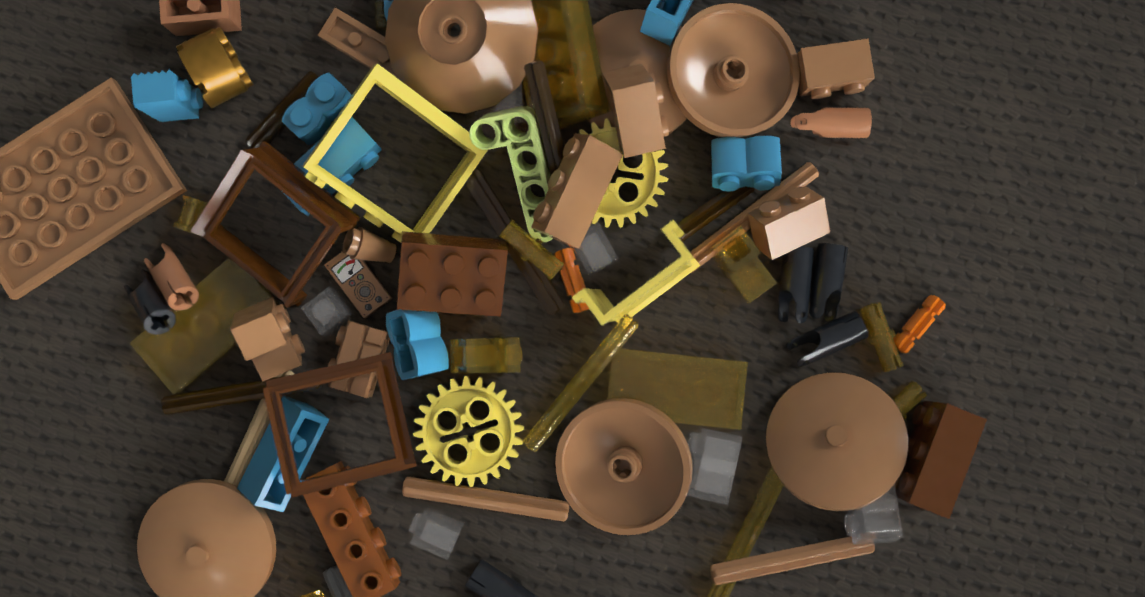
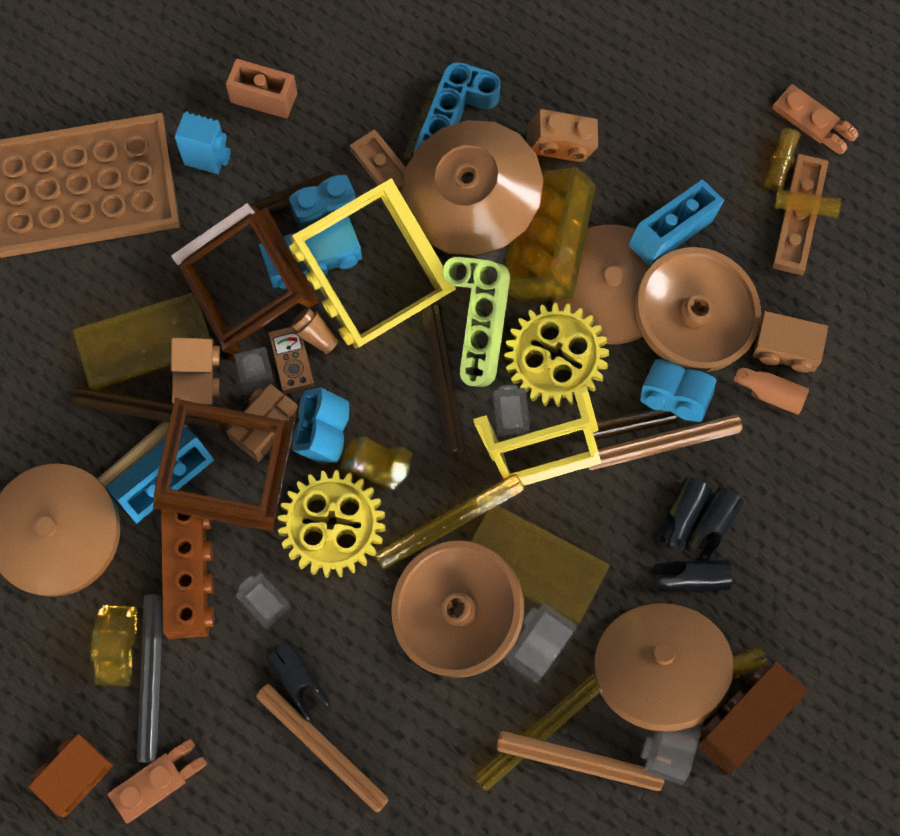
camera: 25 degrees right, 15 degrees down
(151, 306) = (107, 305): black piece -> none
(173, 281) = (135, 292): nougat piece -> none
(190, 213) = (175, 243): clear yellow bush -> none
(214, 66) = (253, 136): pearl gold brick -> none
(451, 274) = (376, 378): reddish brown brick -> none
(485, 499) = (320, 592): medium nougat axle -> none
(531, 249) = (456, 388): clear yellow pin -> none
(545, 114) = (511, 306): dark brown axle -> none
(571, 277) = (479, 453): orange axle -> none
(576, 189) = (515, 347): medium nougat brick -> none
(634, 104) = (595, 303): medium nougat brick -> none
(739, 262) = (637, 474): clear yellow brick -> none
(789, 222) = (696, 454): brick -> none
(881, 337) = (744, 594): clear yellow pin -> none
(918, 323) = (784, 598): orange axle -> none

